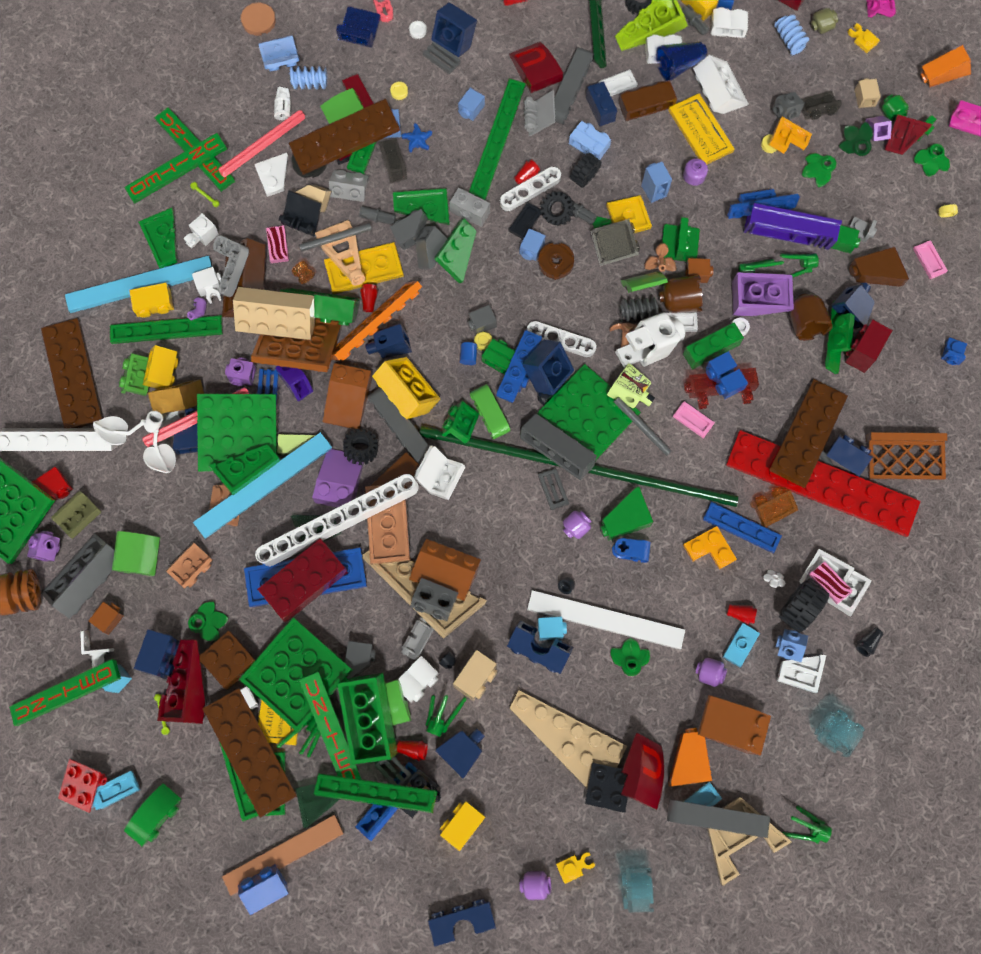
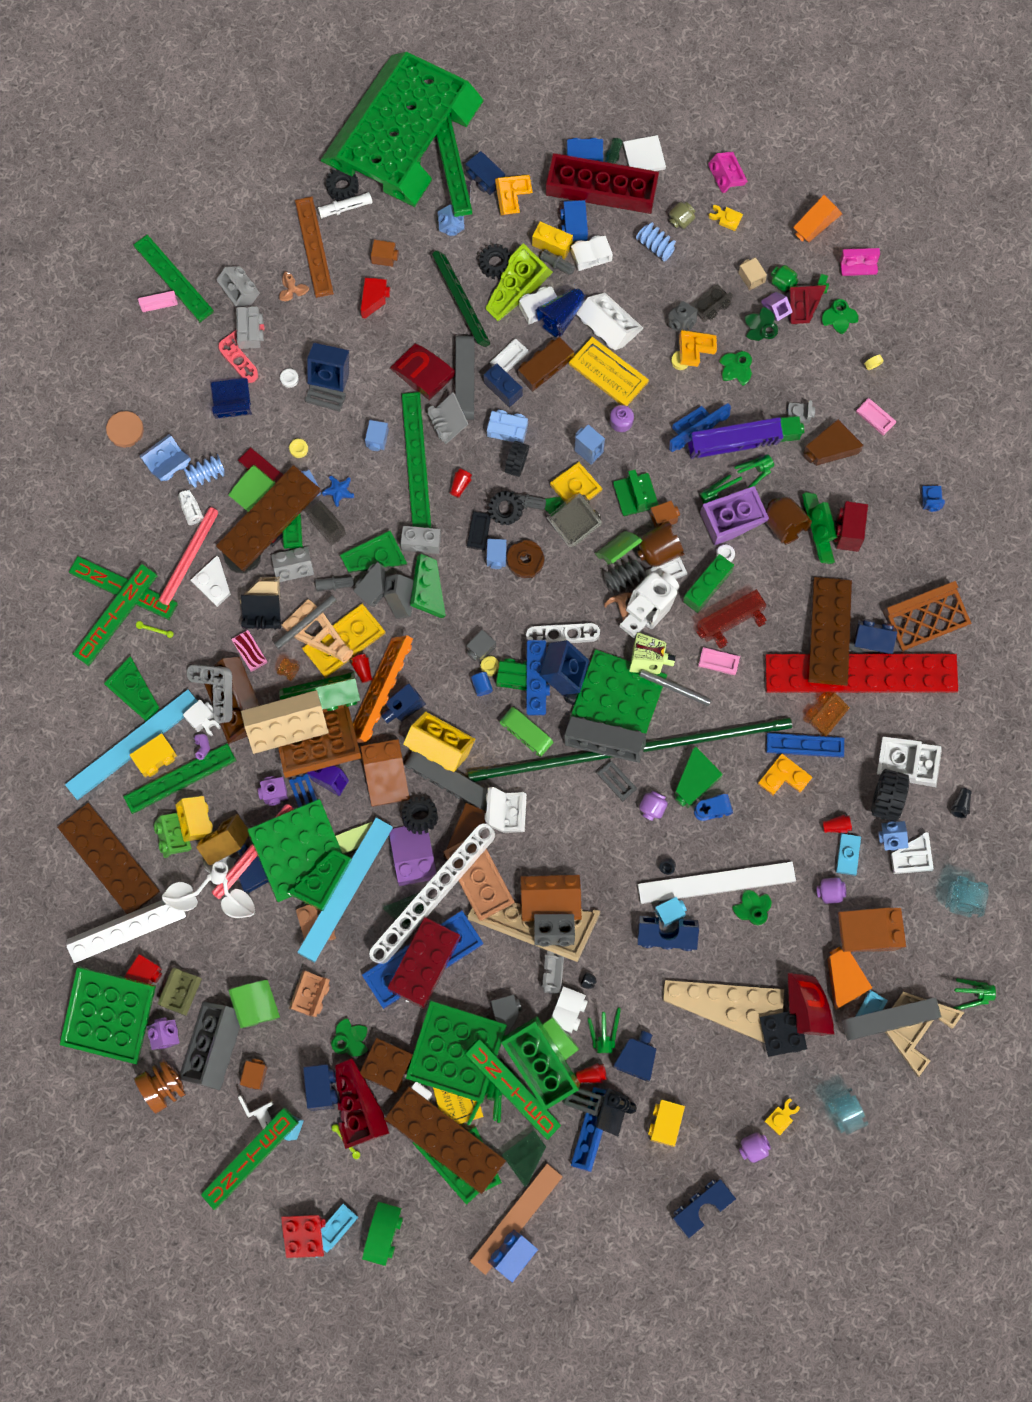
camera: 20 degrees left, 0 degrees up
(202, 230) = (171, 667): white brick -> none
(375, 793) = (577, 1126): green tile -> none
(460, 422) = (503, 753): green bracket -> none
(475, 675) = (620, 984): tan brick -> none
(528, 186) = (473, 499): white beam -> none
(663, 263) = (630, 520): nougat plant -> none
(727, 380) = (725, 603): blue piece -> none
(774, 579) = (854, 781): white plant -> none
(831, 582) = (906, 764): tile -> none
(855, 301) = (824, 488): dark blue torso -> none

